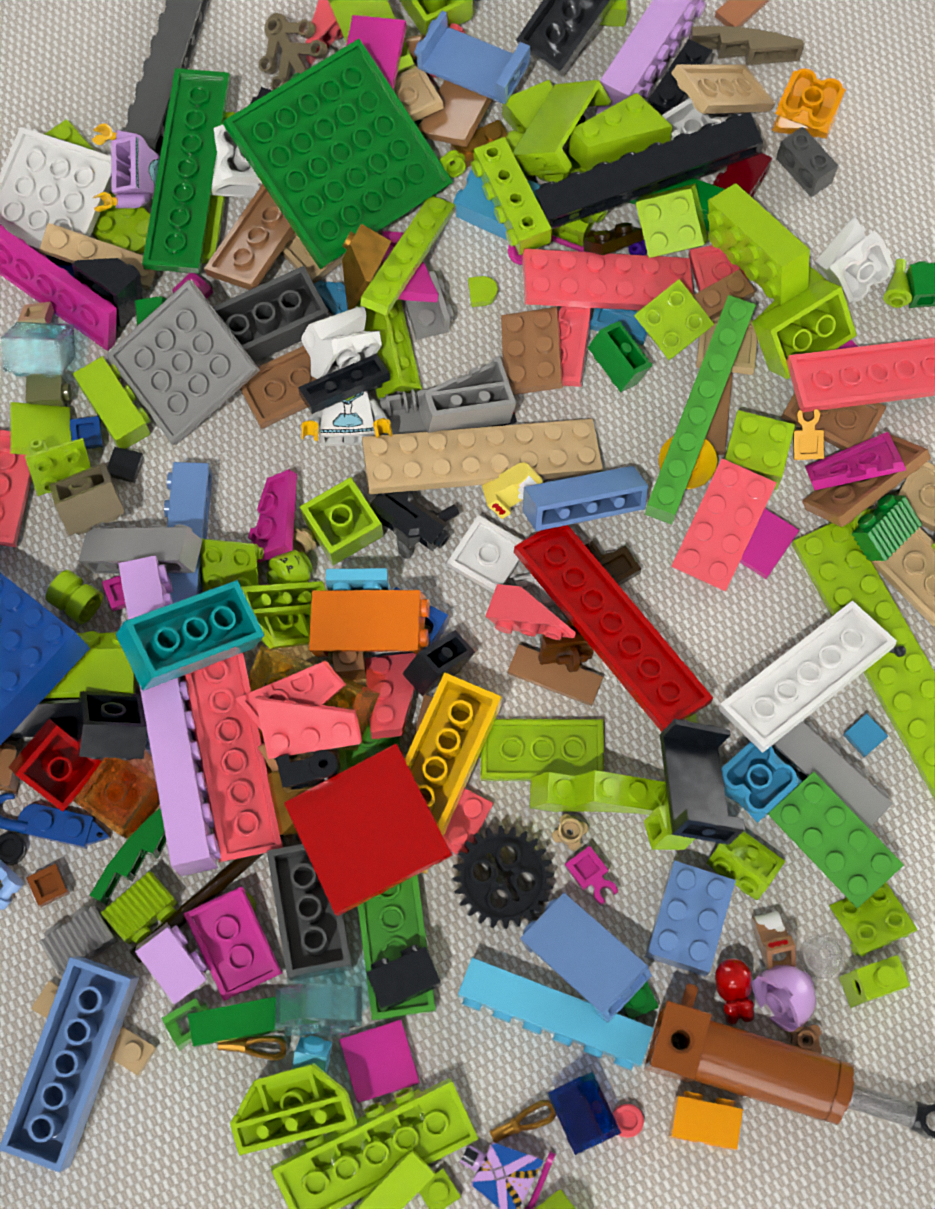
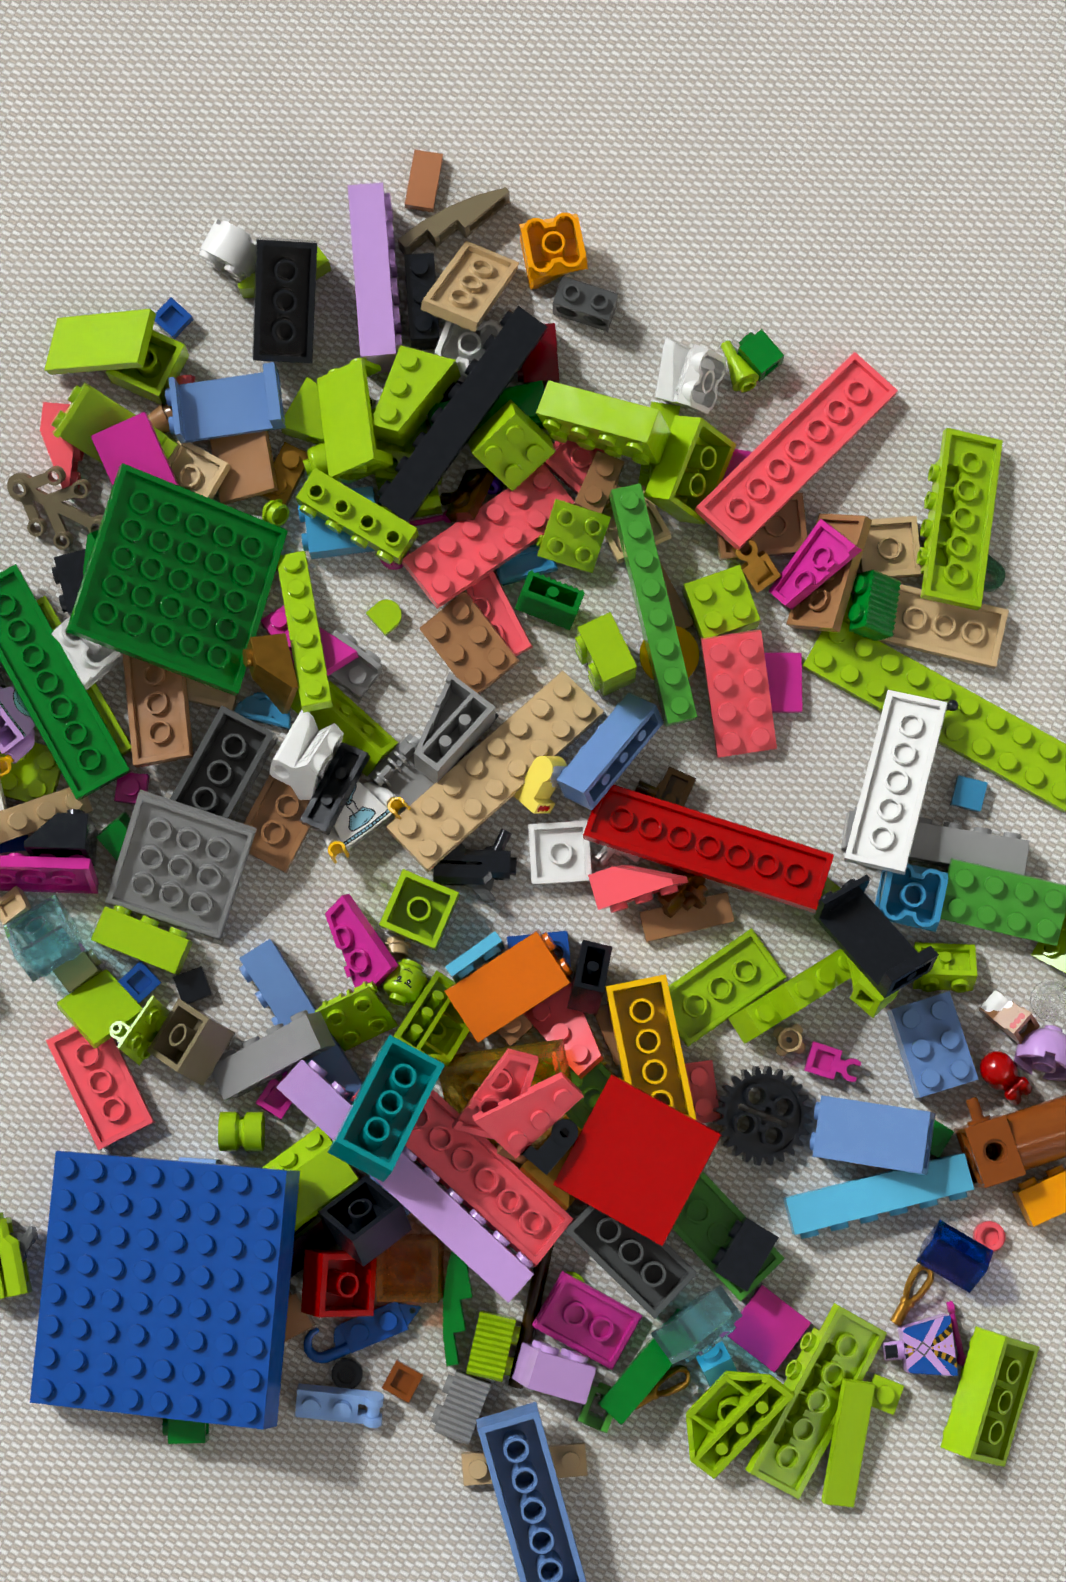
camera: 35 degrees left, 10 degrees up
(632, 419) = (606, 655): none -> lime brick

